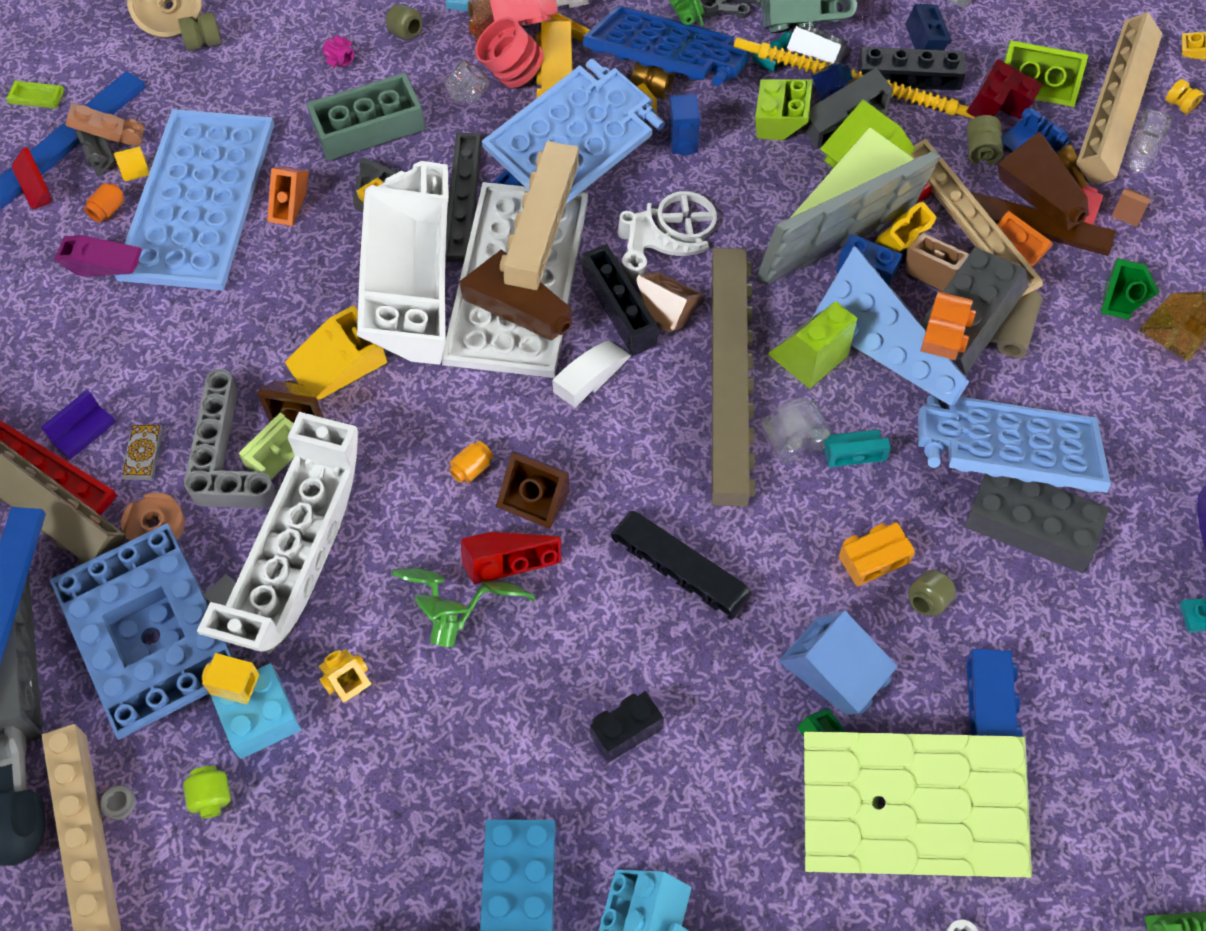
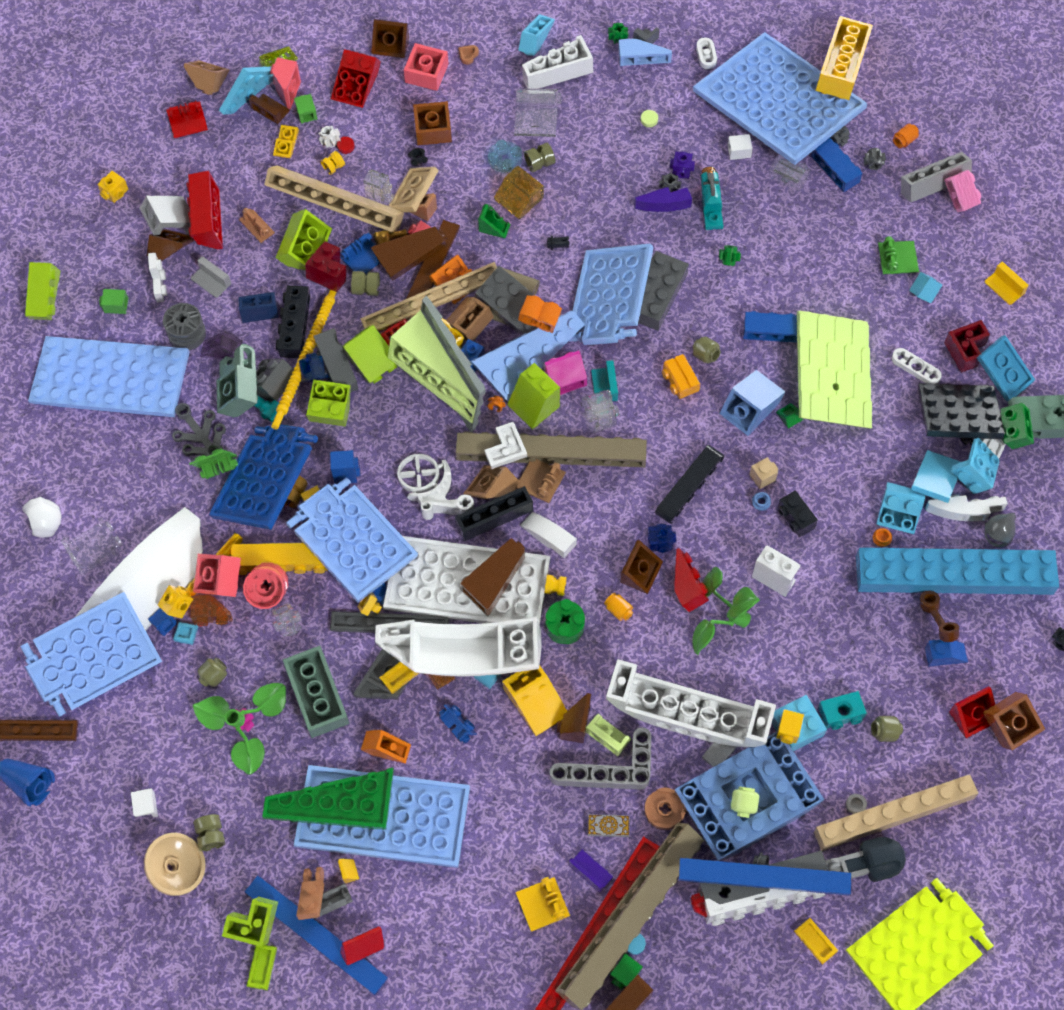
camera: 90 degrees left, 5 degrees up
(48, 375) = (542, 904): none -> yellow hinge
(48, 648) = (761, 859): none -> dark grey plate
(78, 72) = (256, 926): none -> lime brick
(96, 256) = (449, 871): magenta slope -> none
(104, 202) = (385, 886): orange brick -> none
(121, 609) = (745, 801): none -> yellowish green head
(206, 791) = (849, 747): lime head -> none
(212, 148) = (343, 802): none -> green wing
(232, 857) = (886, 728): none -> olive head
(283, 800) = (850, 702): none -> teal brick
(314, 273) = (463, 727): none -> blue hinge
(344, 674) = (773, 672): yellow brick -> none
(352, 26) = (215, 712): none -> bright green plant
(447, 389) = (563, 632): none -> green brick
(486, 168) = (369, 604): none -> yellow tile
(509, 379) = (555, 585): none -> yellow wheel
(511, 678) = (775, 570): none -> white panel
(540, 215) = (435, 553): tan brick -> none
(581, 517) = (661, 538): none -> clear blue brick
(588, 876) = (882, 537): none -> orange plate
(654, 666) = (764, 496): none -> medium blue plate
(681, 364) = (541, 479): none -> medium nougat hinge
(701, 675) = (764, 473): none -> tan brick
(720, 308) = (509, 450): none -> white plate
(805, 304) = (496, 401): none -> orange plate
(859, 382) = (567, 371): none -> dark pink slope
(1062, 24) = (256, 225): none -> nougat hinge
(1105, 379) = (557, 242): none -> black pin
(1128, 634) = (729, 255): none -> green gear
(1158, 187) = (413, 189): none -> tan tile

